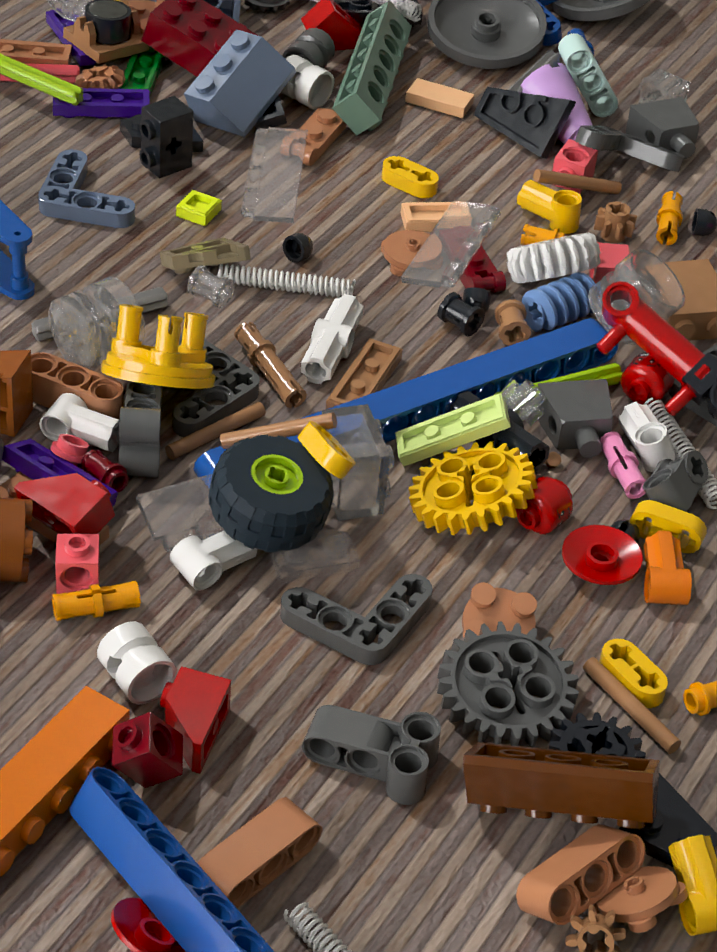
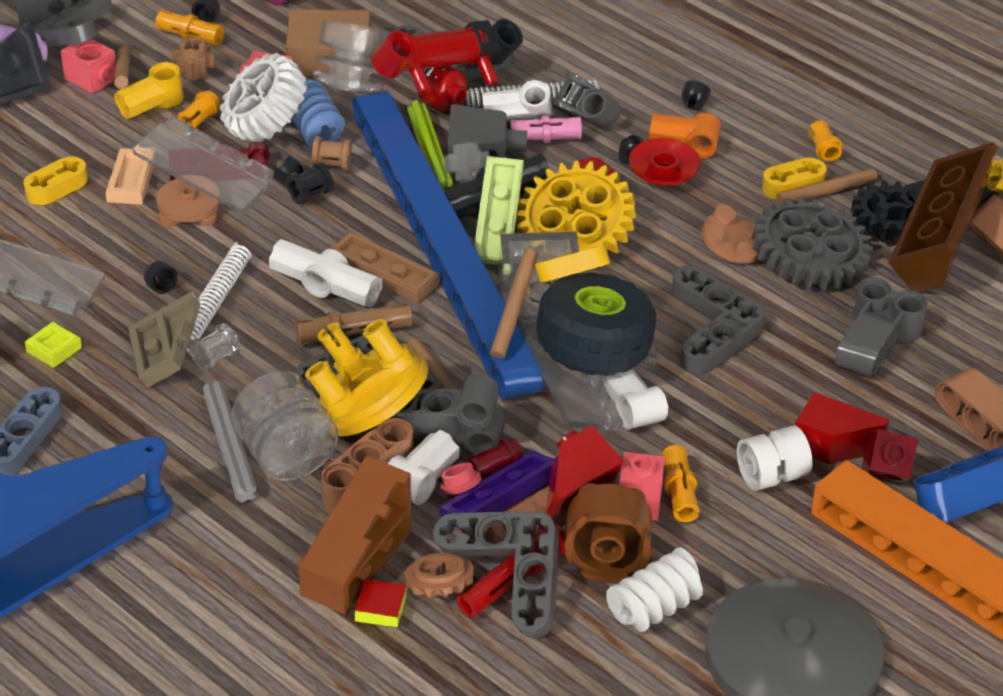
camera: 75 degrees left, 0 degrees up
(669, 519) = (631, 118): yellow beam -> none

